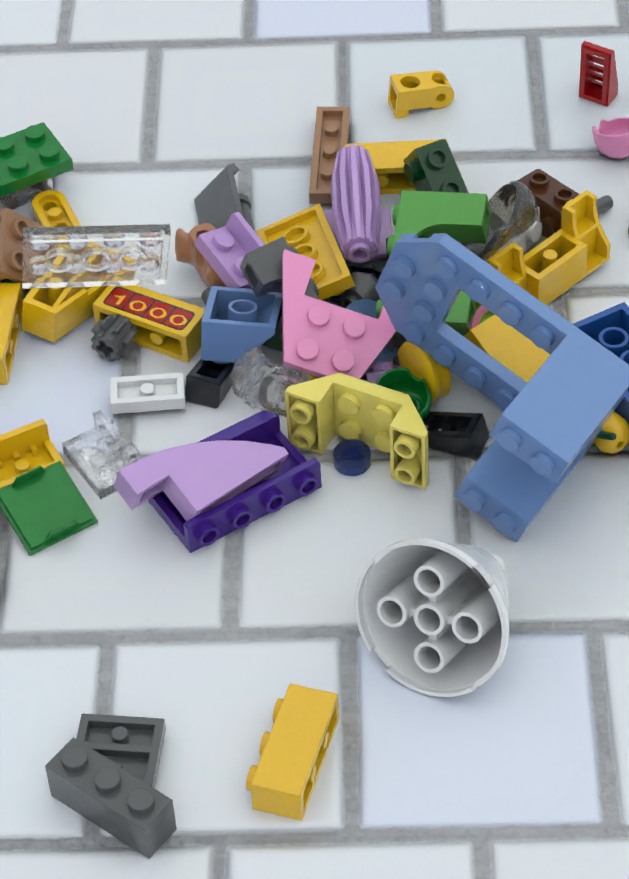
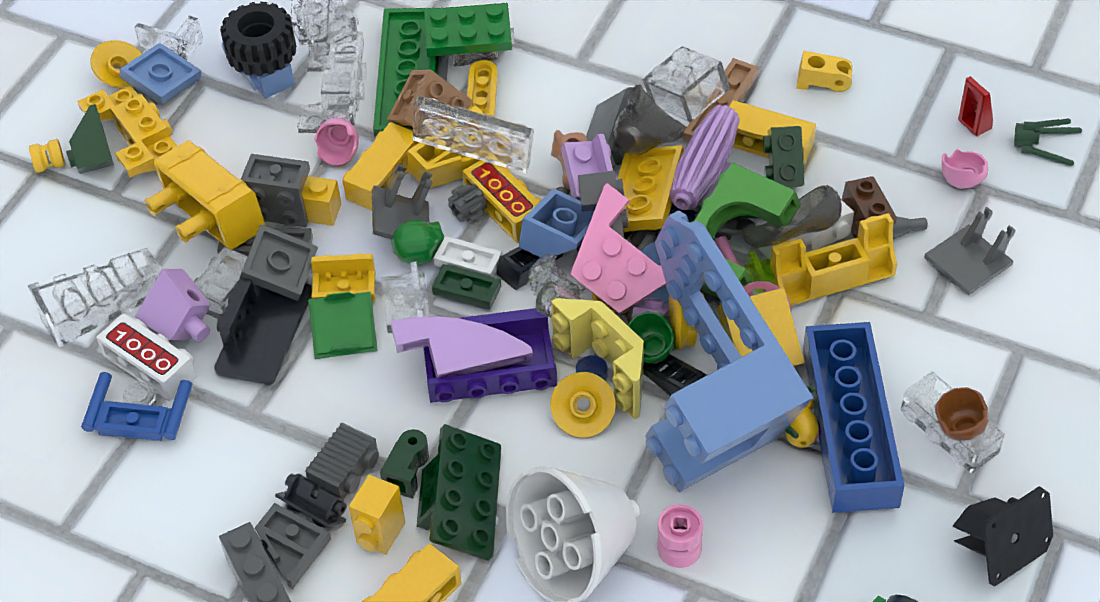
camera: 25 degrees right, 5 degrees up
(47, 375) = (392, 209): none -> dark grey plate
(81, 393) = (417, 241): none -> green piece
(133, 645) = (343, 460): none -> dark grey brick
(141, 698) = (323, 509): none -> black hinge
(163, 421) = (466, 286): none -> dark green plate
(206, 631) = (404, 461): none -> dark green leg
(213, 677) = (377, 514): none -> yellow brick
(265, 202) = (644, 125): none -> clear smoke hair
(285, 625) = (461, 493): none -> dark green bracket
(286, 143) = (686, 83): none -> clear brick
(383, 480) = (565, 404): none -> yellow dish
(551, 577) = (680, 535): none -> bright pink wheel

